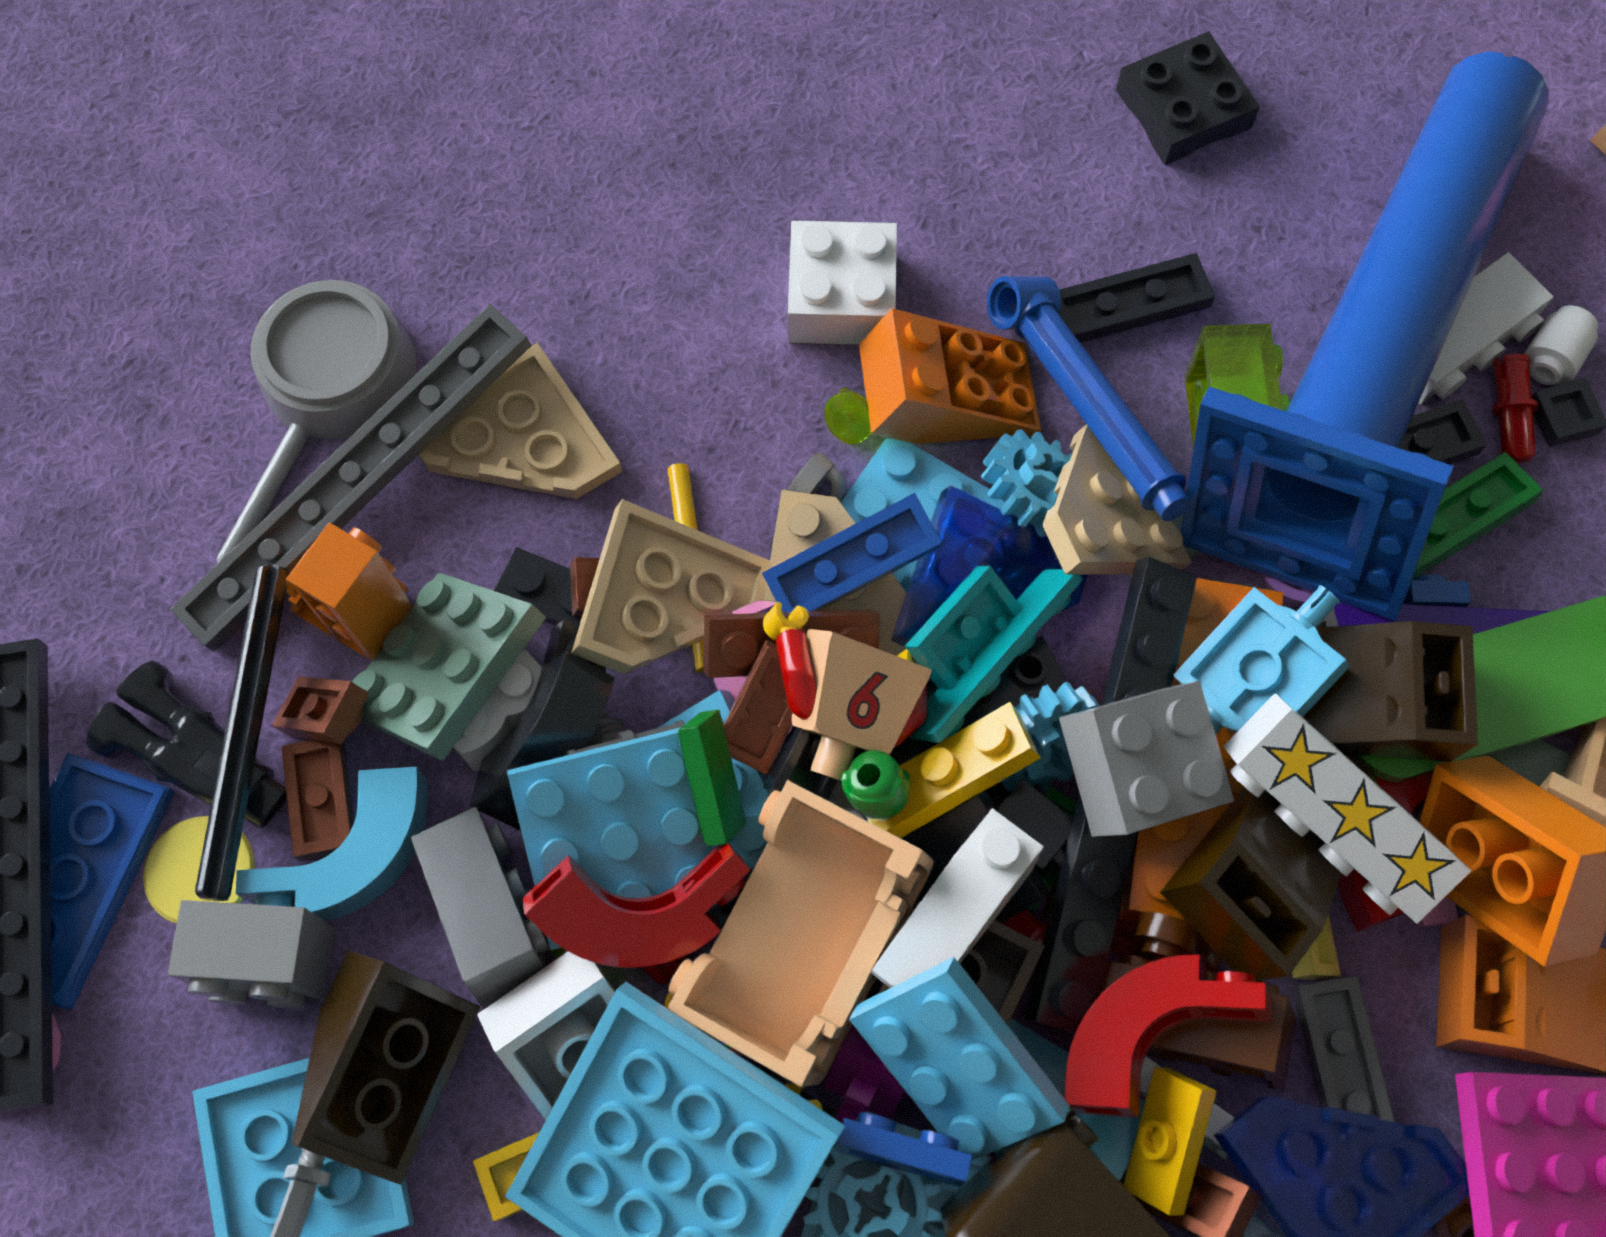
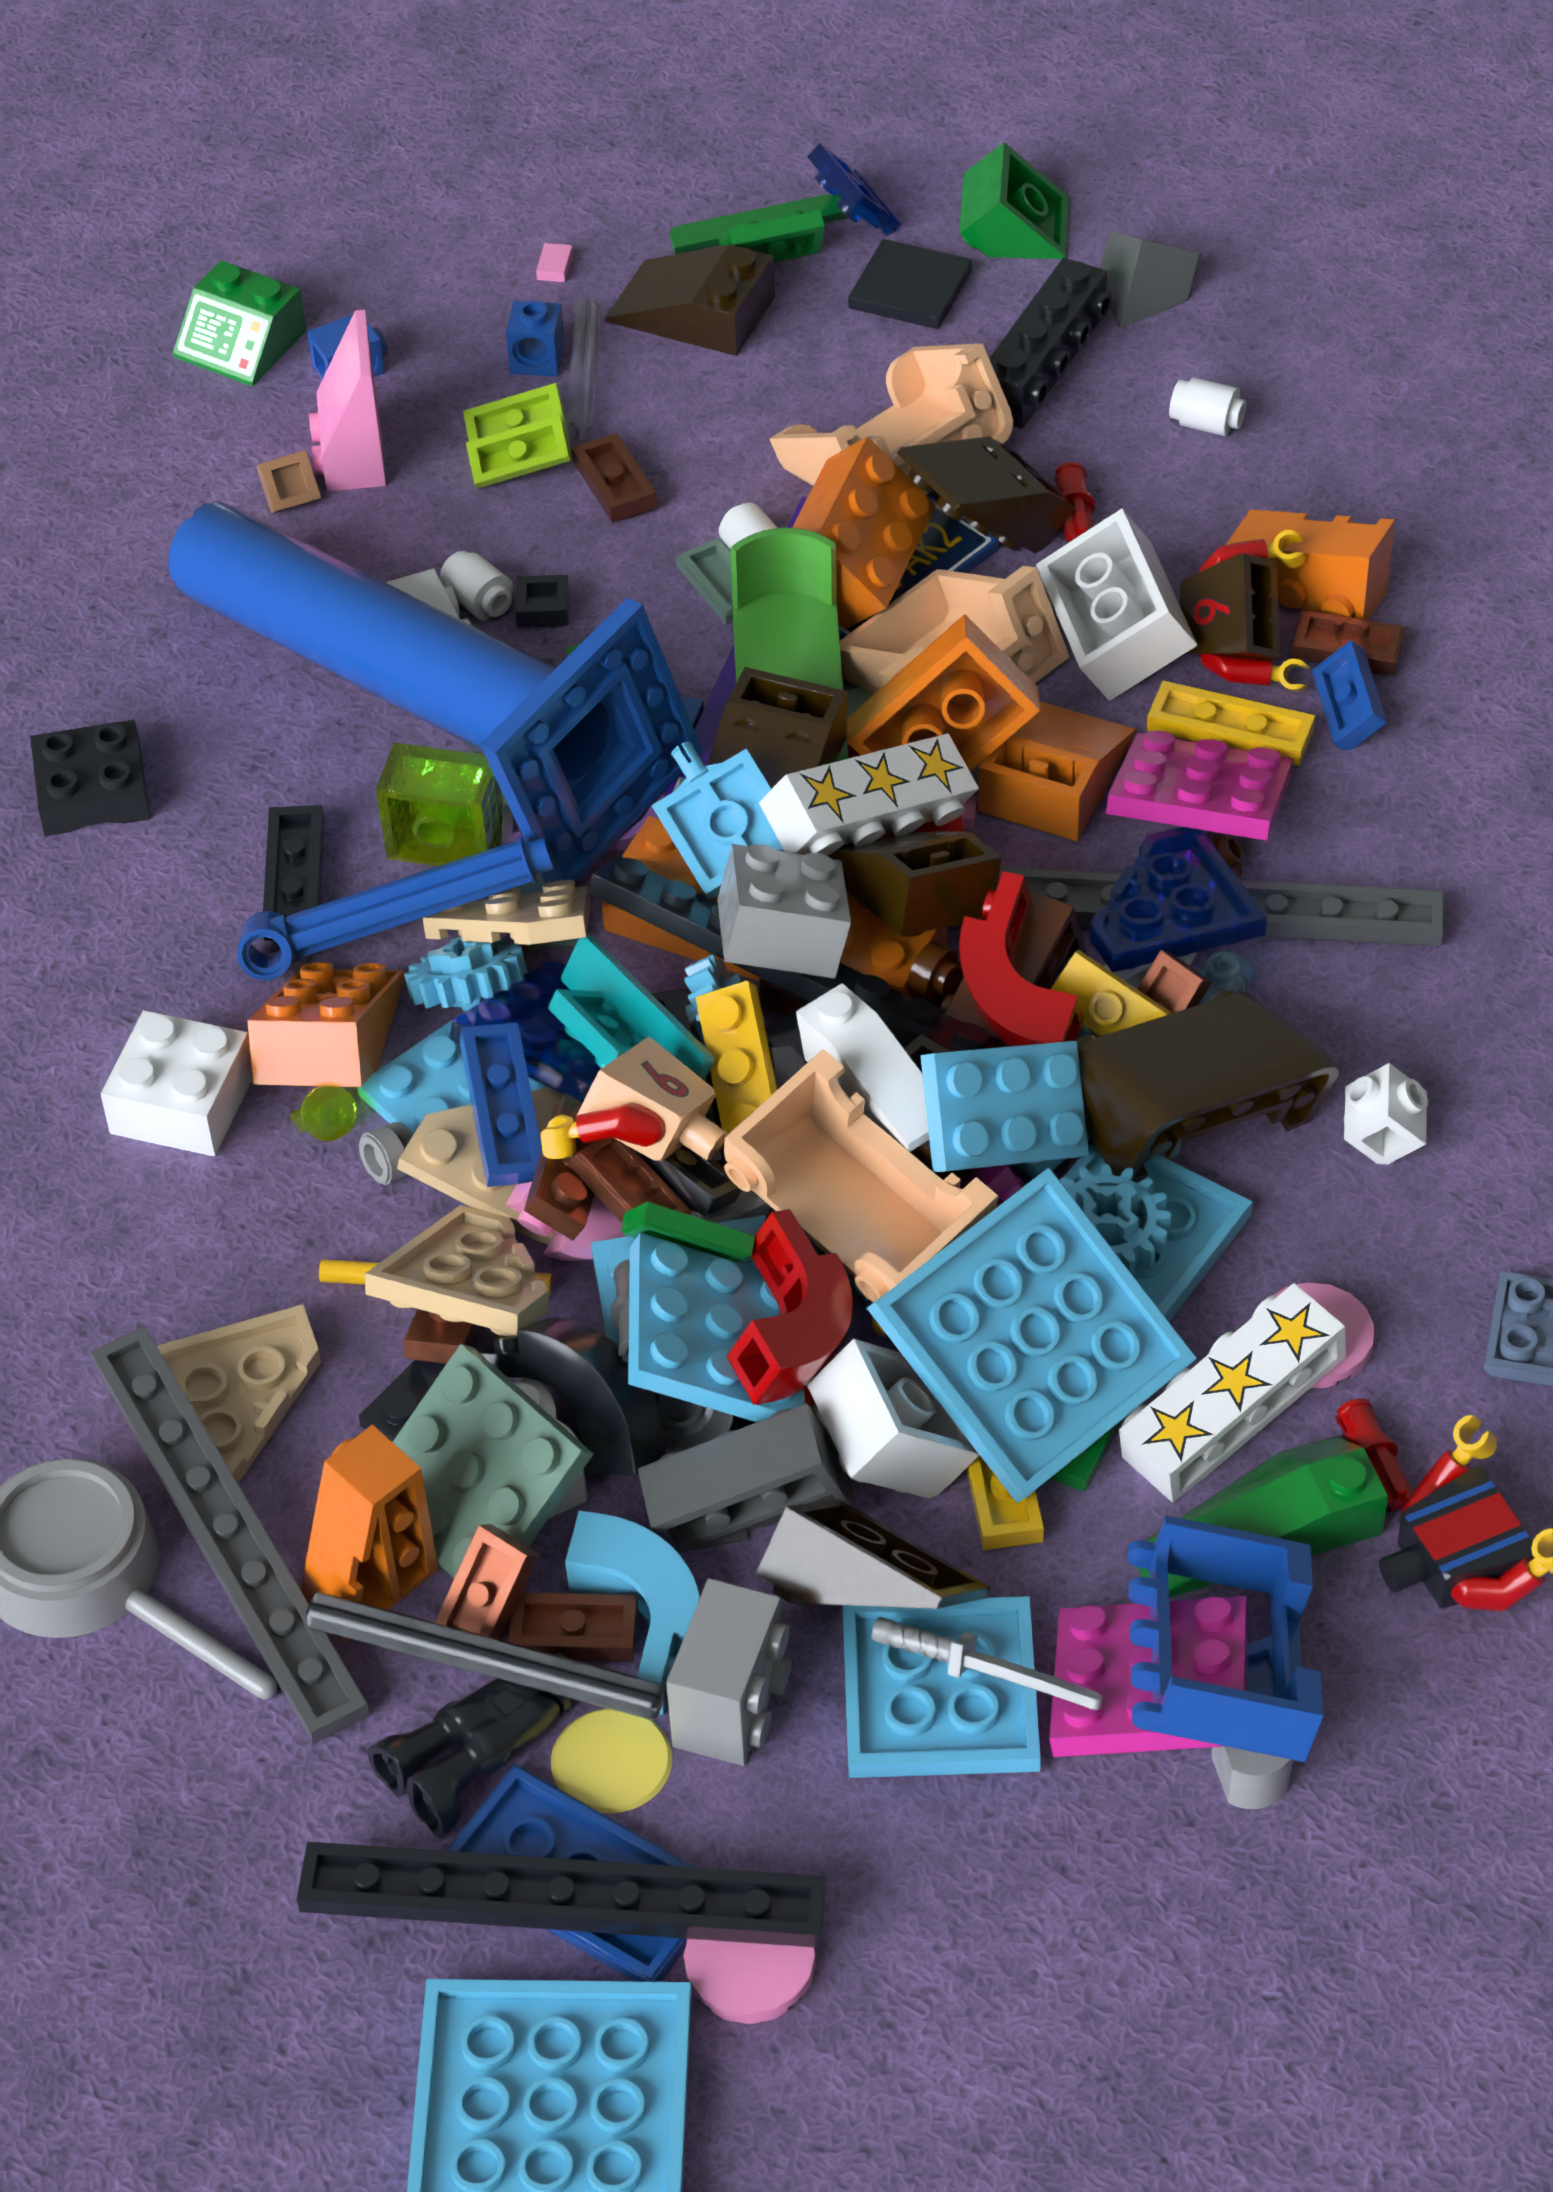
camera: 75 degrees left, 20 degrees down
(876, 785) = (735, 1099): green piece -> none
(930, 1156) = (1078, 1149): blue plate -> none
(1515, 406) = (525, 632): red axle -> none

